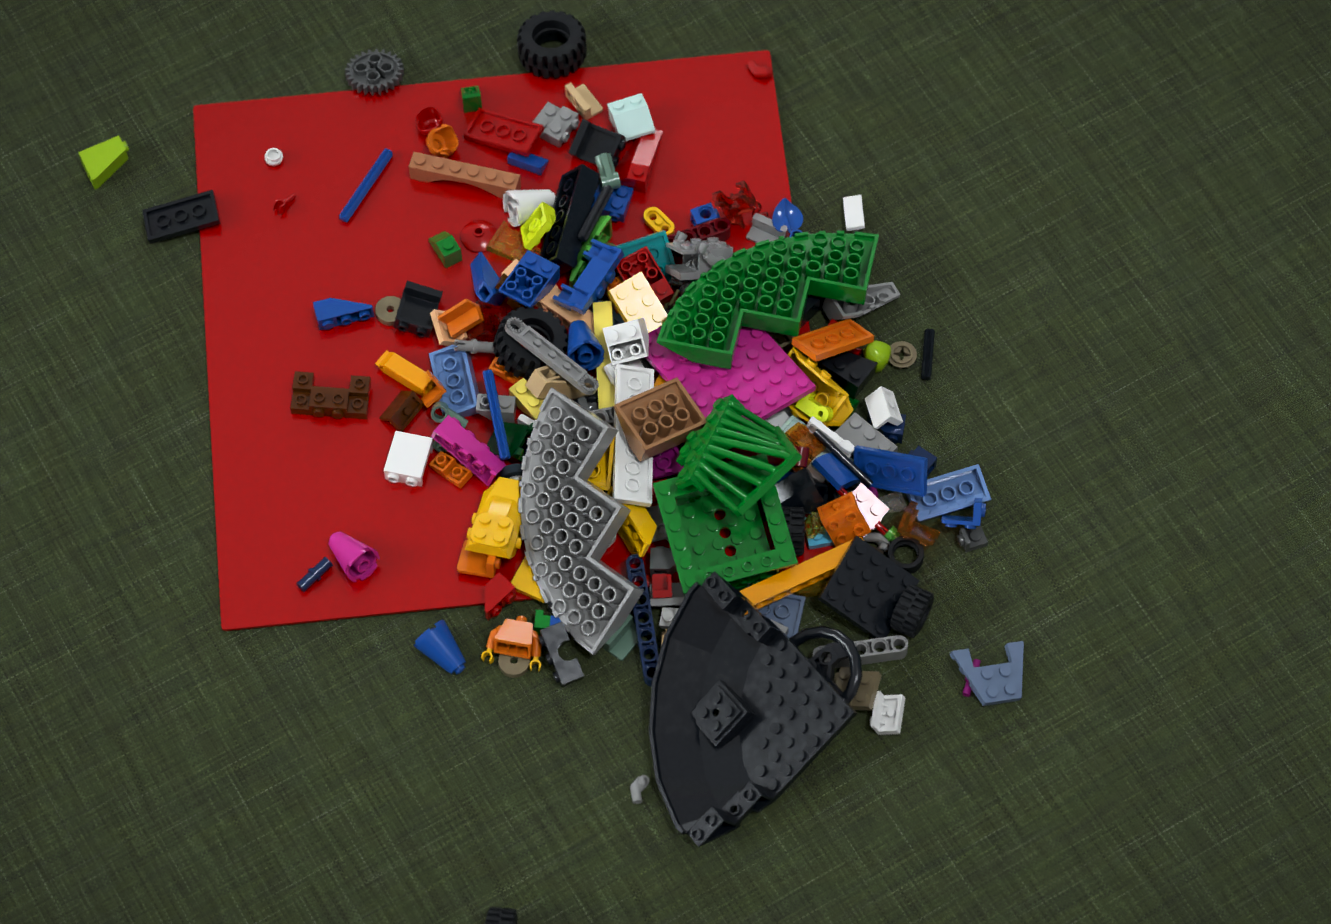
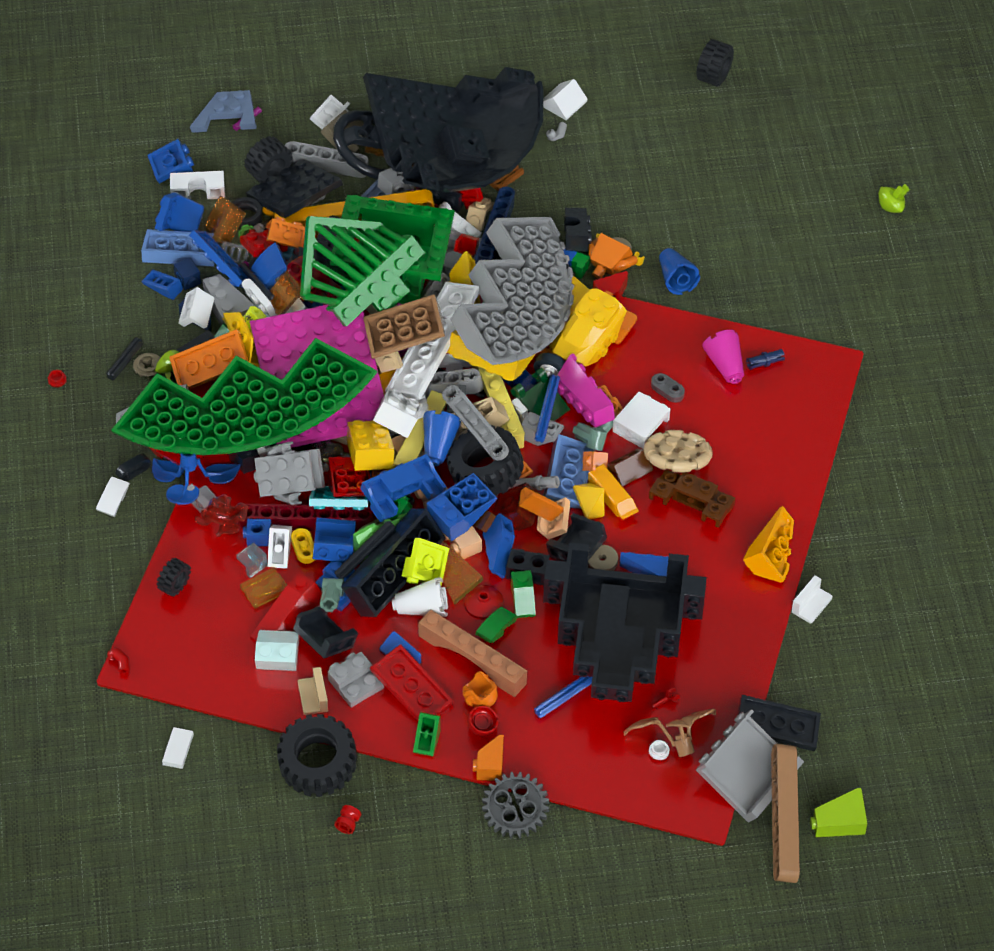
camera: 160 degrees left, 10 degrees down
(148, 135) = (785, 813): none -> medium nougat beam
(189, 346) = (811, 601): none -> white panel
(190, 163) = (742, 767): none -> light grey panel
(240, 365) = (770, 549): none -> light orange wedge
(246, 830) = (893, 199): none -> lime piece
(250, 143) = (683, 740): none -> medium nougat plant
(345, 234) = (620, 618): none -> black panel
(355, 421) = (677, 451): none -> tan plate
(398, 509) = (665, 387): none -> flat silver plate
(409, 94) = (489, 760): none -> orange slope
(425, 358) = (590, 499): none -> yellow slope
(451, 269) = (523, 561): none -> black brick
(456, 211) = (495, 624): none -> green slope
(505, 15) = (347, 820): none -> red wheel
(629, 220) = (333, 539): none -> blue panel
(652, 837) = (565, 99): none -> white slope
(673, 26) = (177, 748): none -> white tile
(673, 176) = (263, 587): none -> clear yellow plate
(680, 213) = (279, 546): none -> white slope
(695, 190) = (253, 559): none -> clear light blue panel
(751, 144) = (173, 577): none -> black tyre
(941, 441) = (164, 284): none -> blue slope
(959, 578) = (211, 182): none -> white arch
(976, 309) = (57, 378): none -> red plate
(1014, 586) = (170, 159): none -> blue plate

